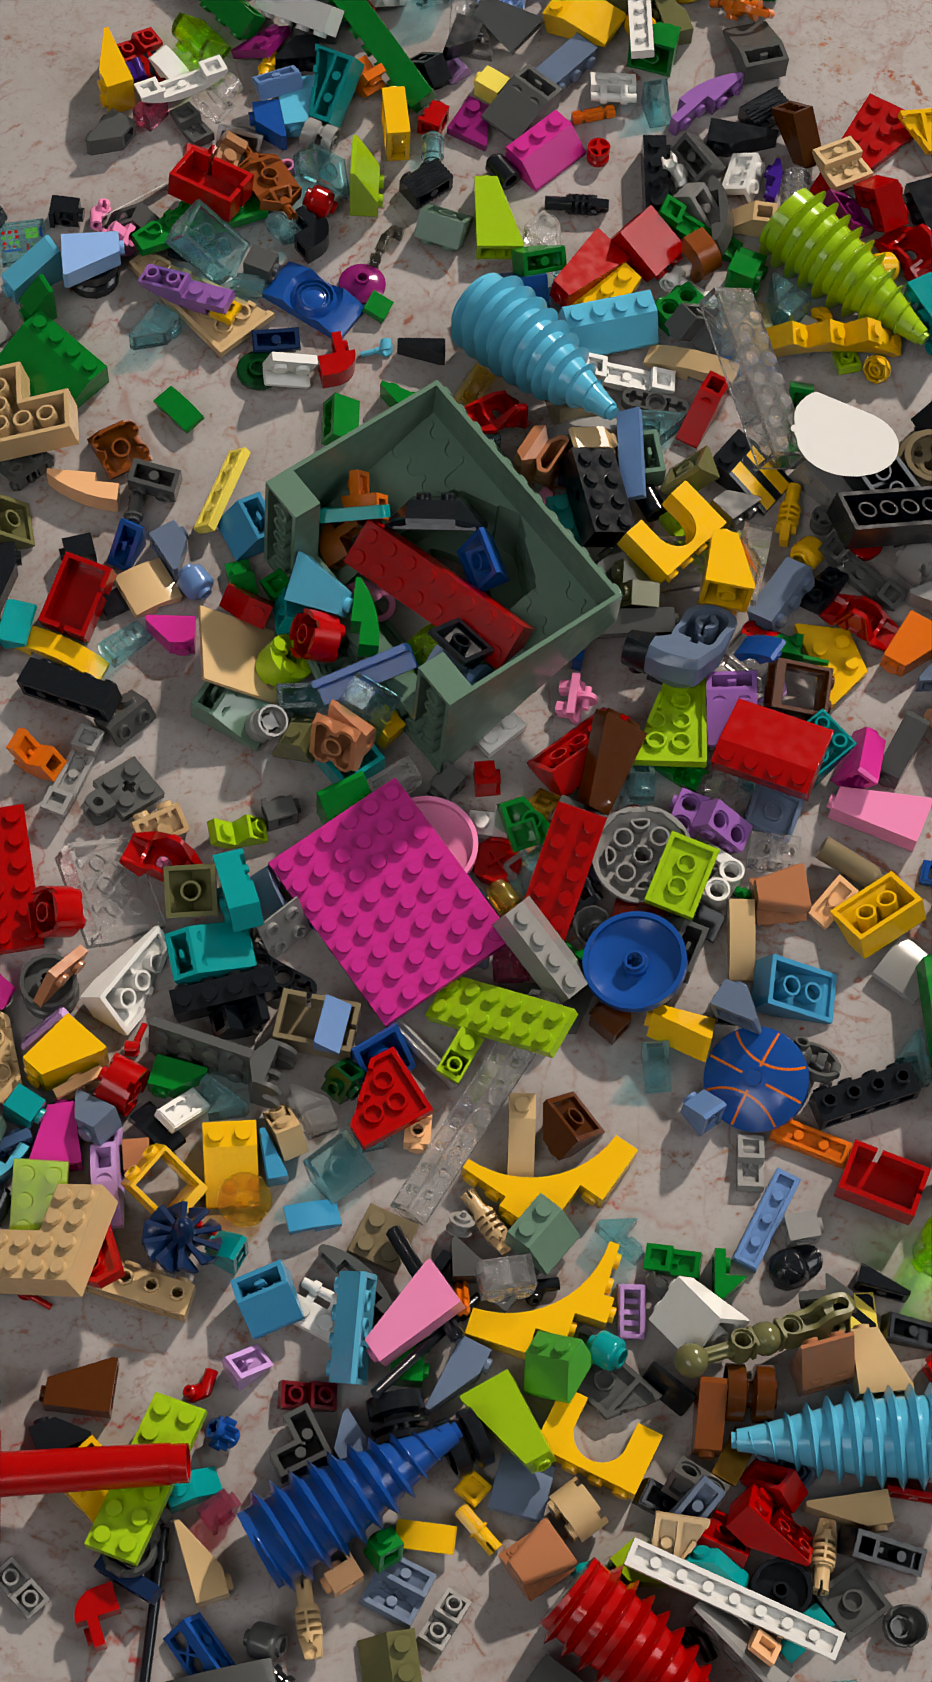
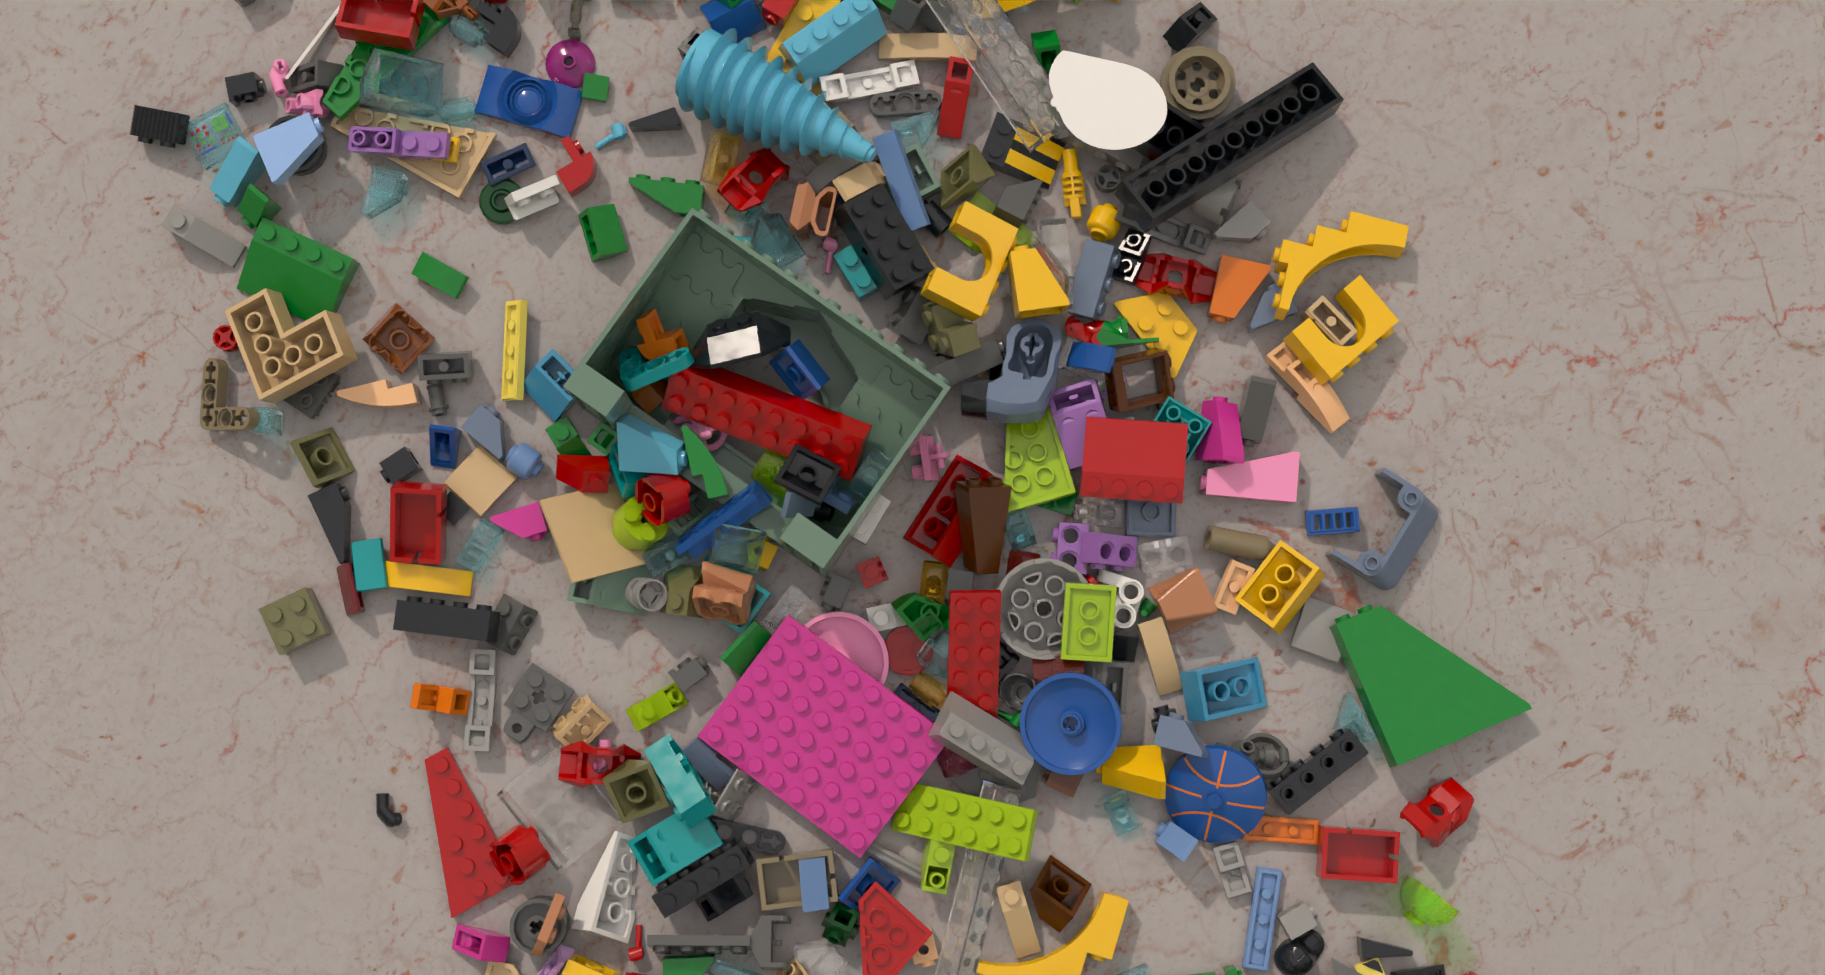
camera: 15 degrees left, 20 degrees up
(262, 263) = (463, 81): dark grey brick -> none

